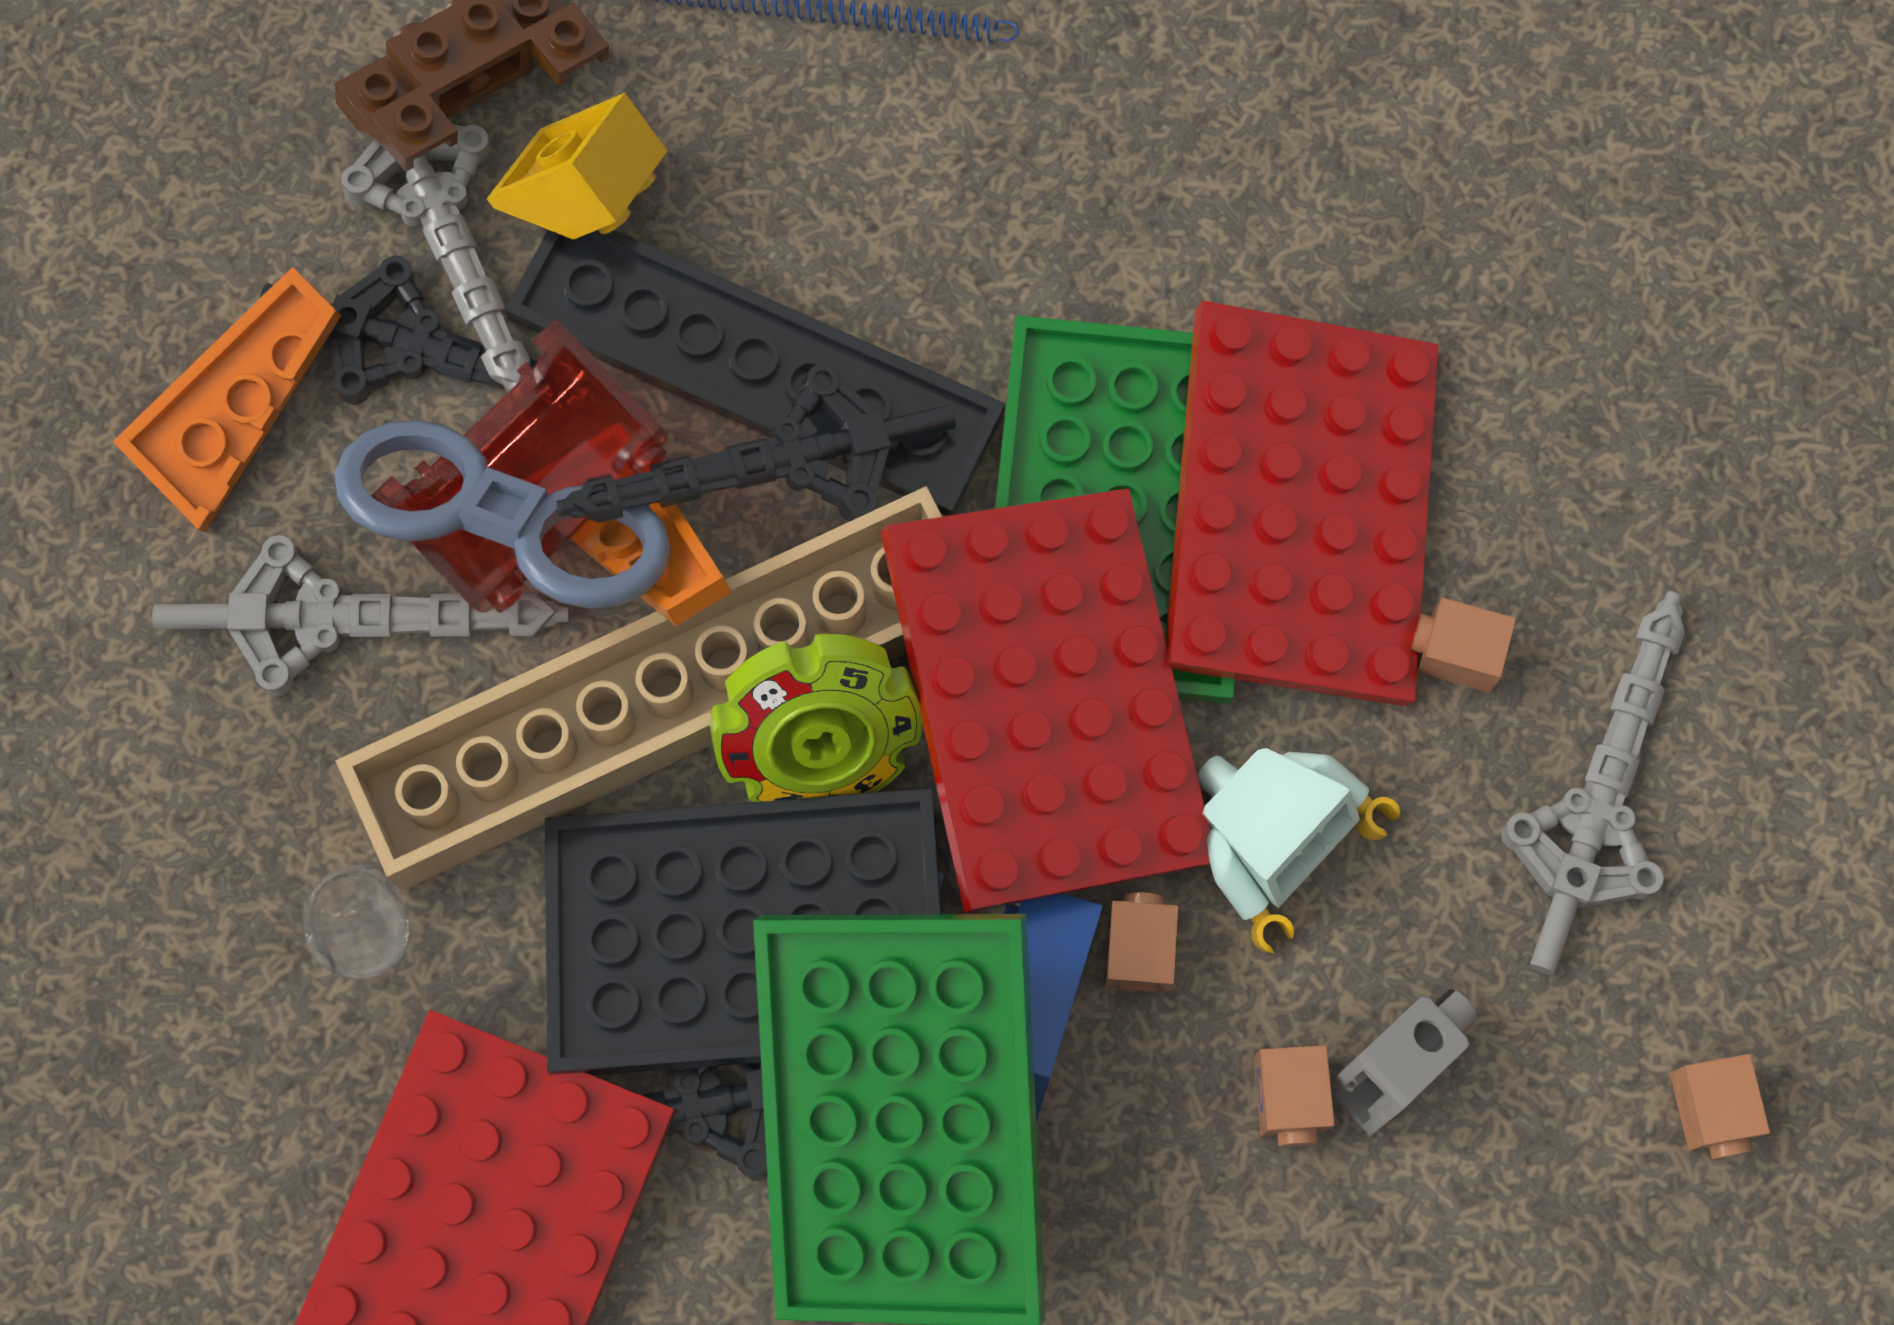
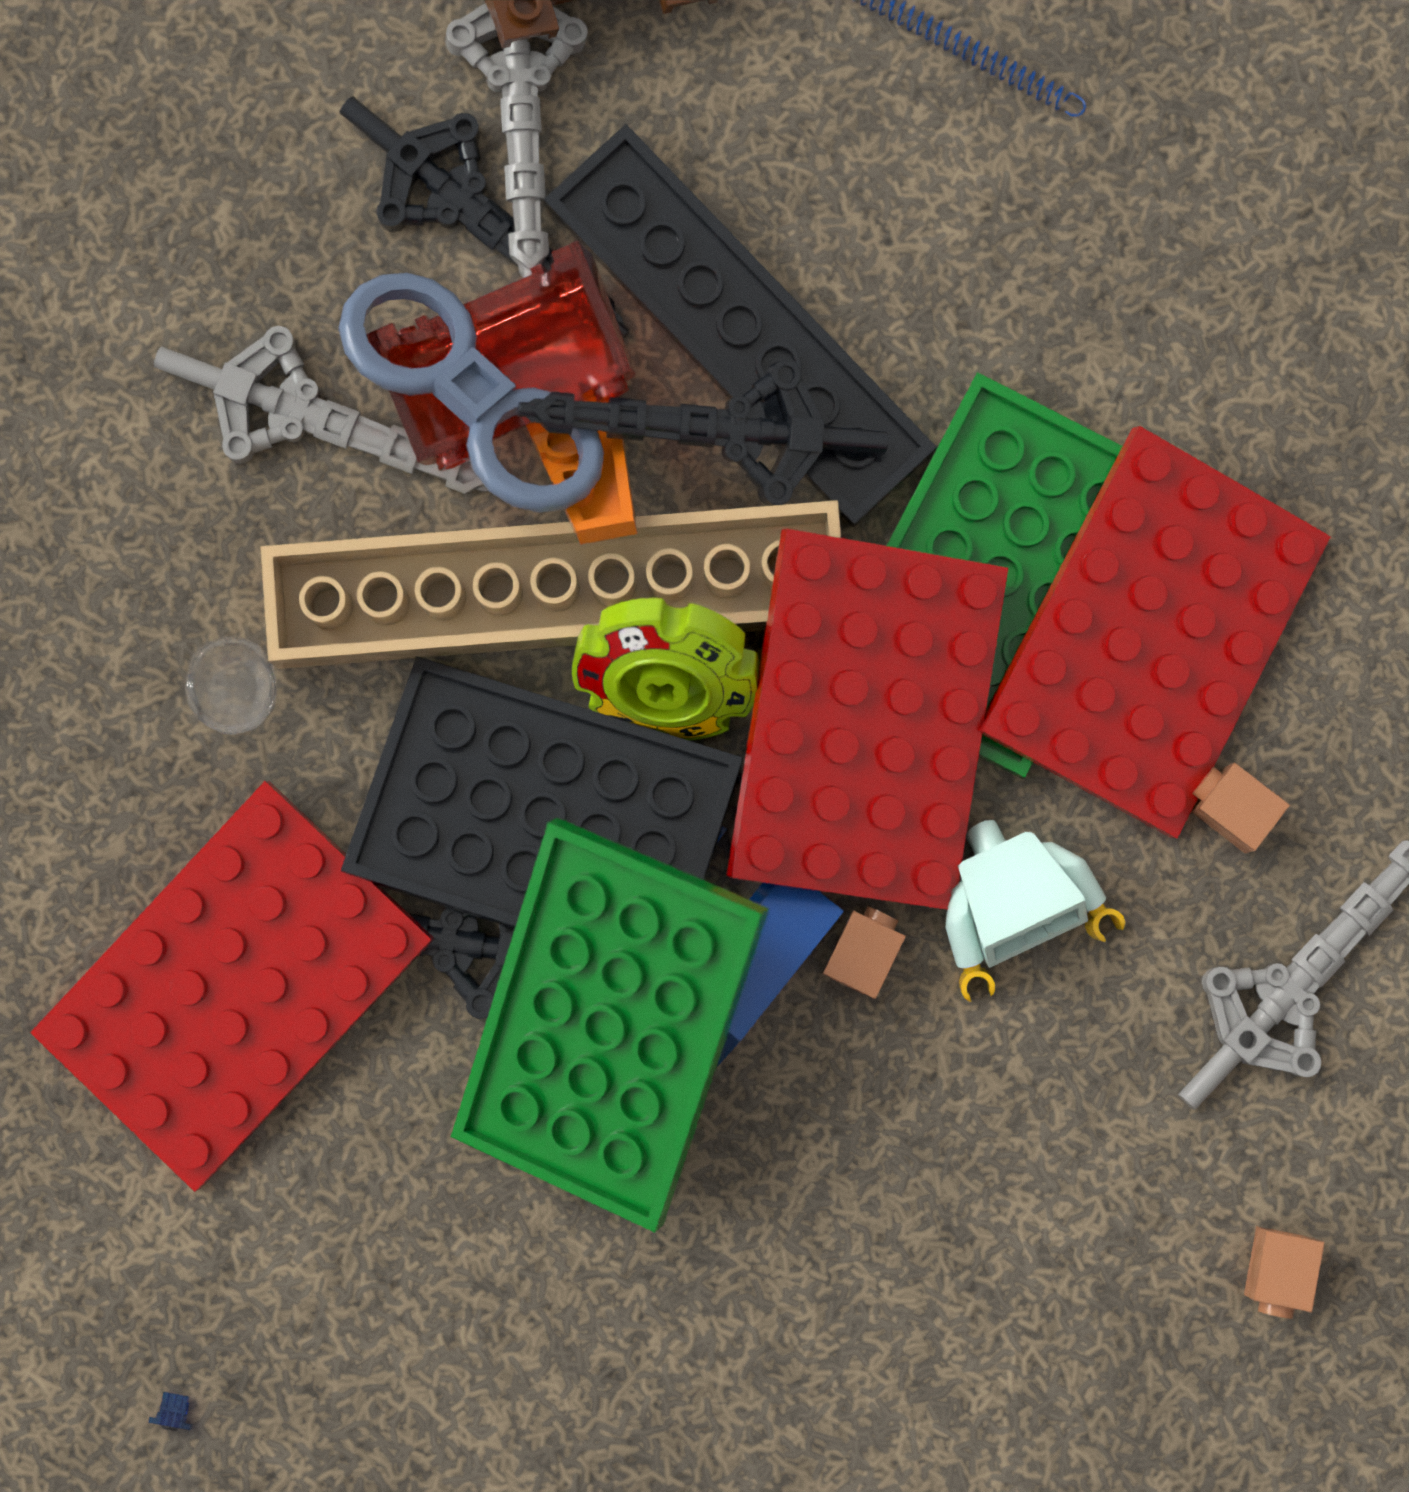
camera: 25 degrees right, 10 degrees up
(225, 403) = (277, 194): orange wing -> none
(582, 170) = (654, 100): yellow slope -> none
(1294, 1094) = (938, 1124): nougat brick -> none
(1404, 1059) = (1022, 1137): light grey torso -> none

